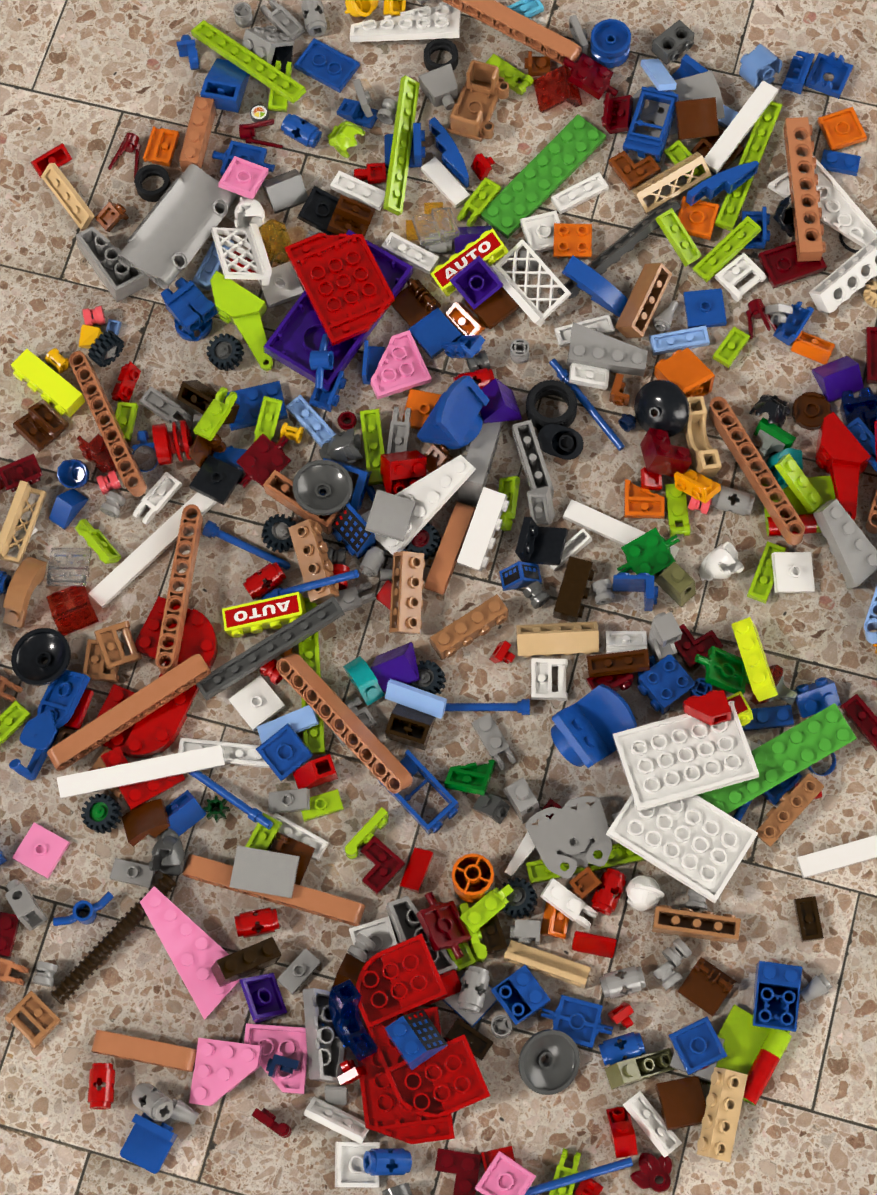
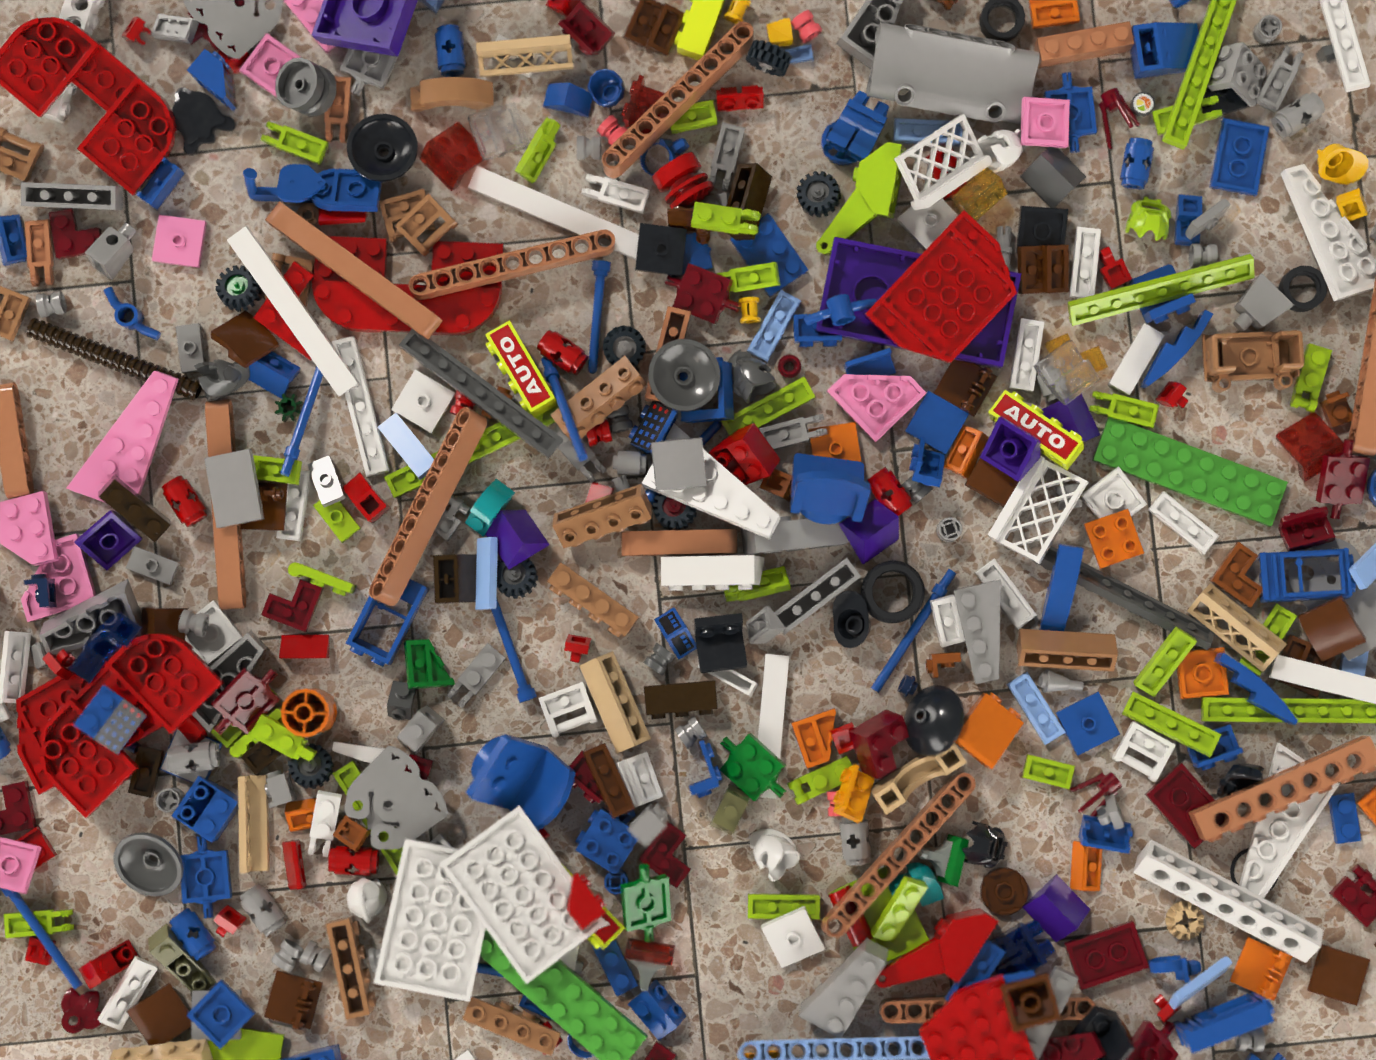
camera: 70 degrees right, 15 degrees up
(284, 752) = (375, 455): blue tile -> none
(754, 659) = (668, 930): neon yellow brick -> none

